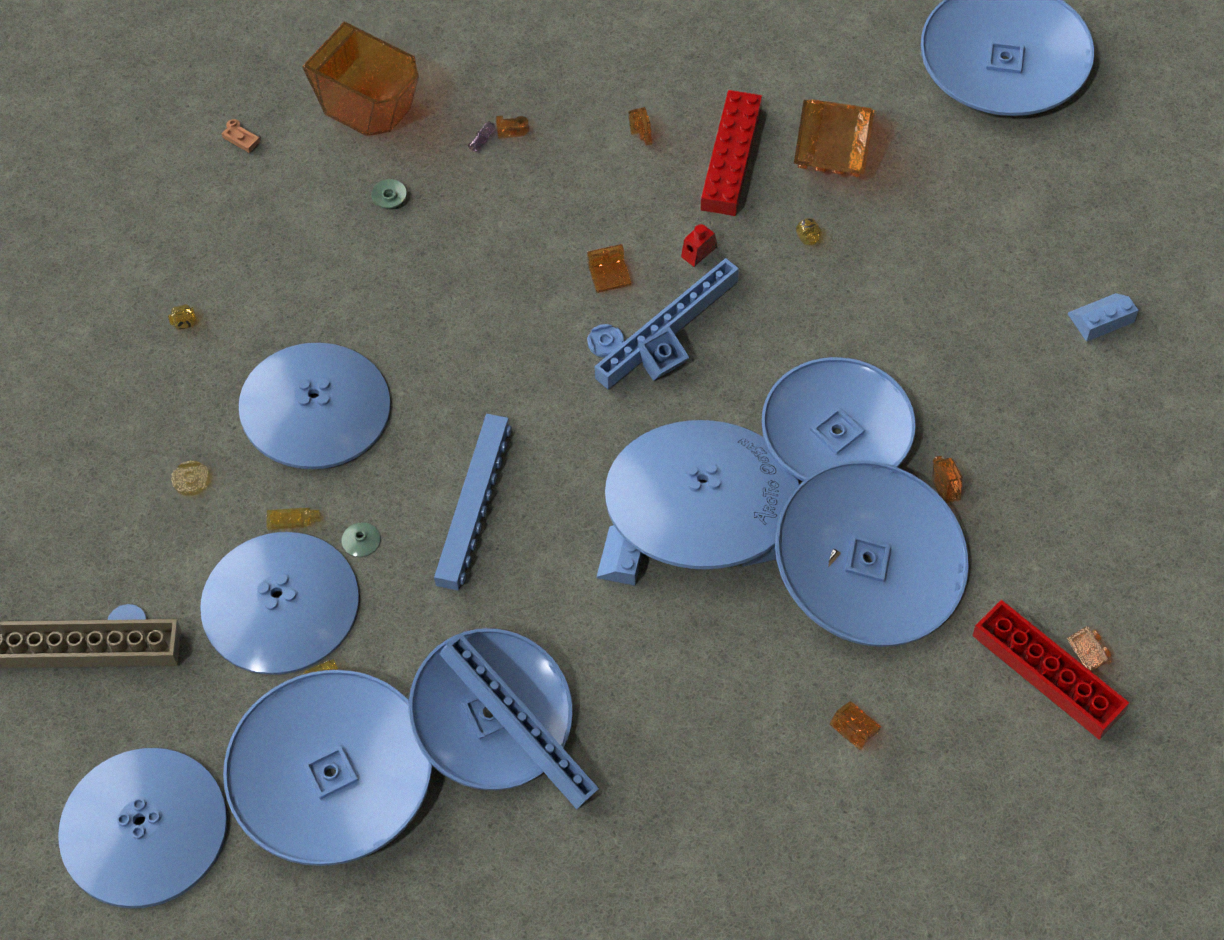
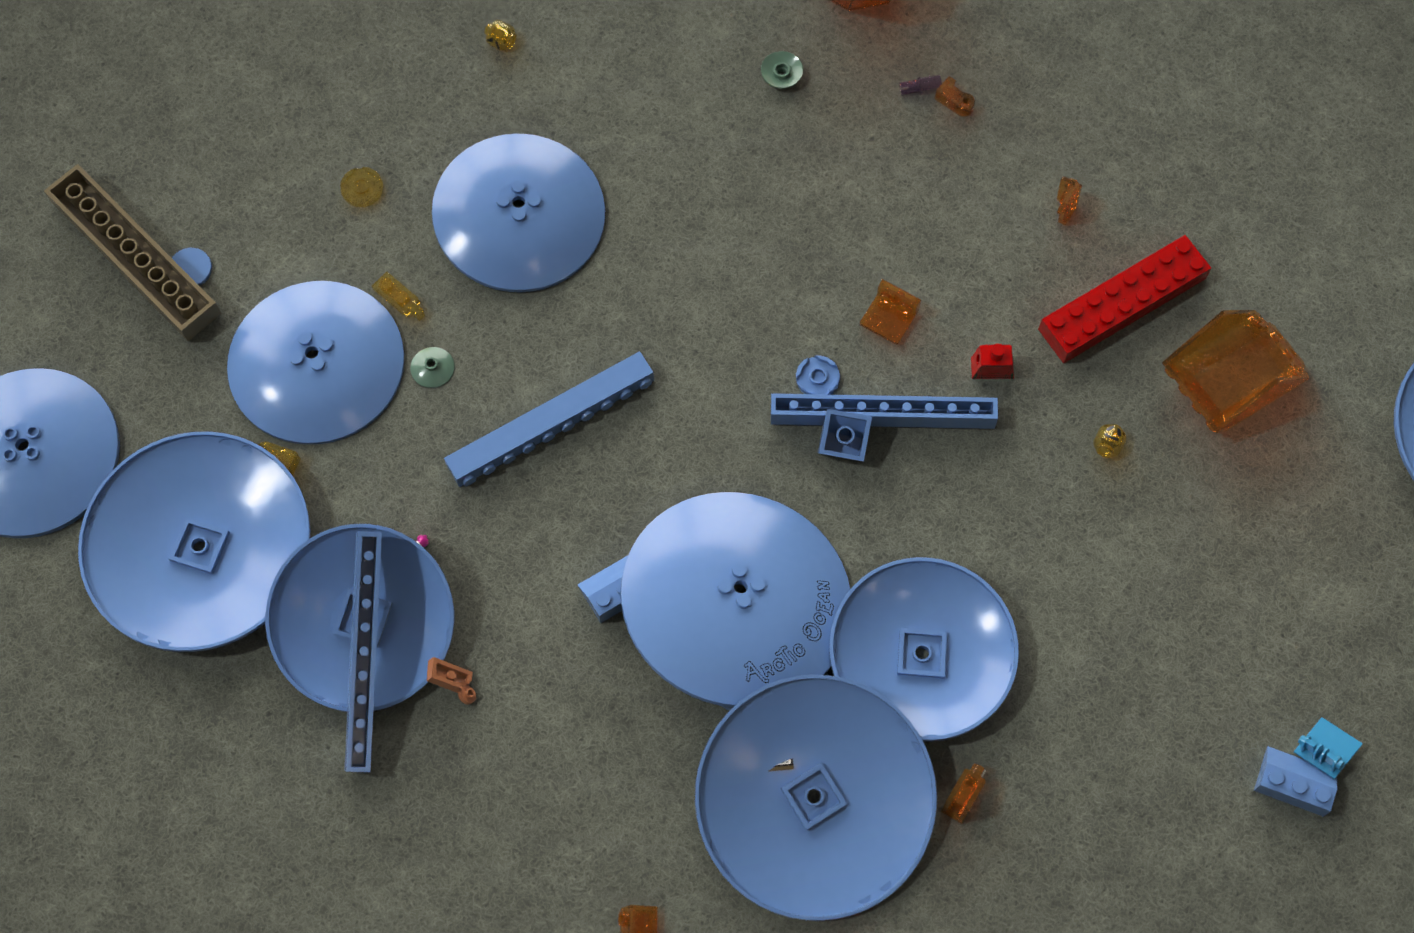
camera: 45 degrees right, 10 degrees up
(585, 692) = (451, 678): none -> nougat hinge
(1098, 284) = (1327, 748): none -> dark azure hinge

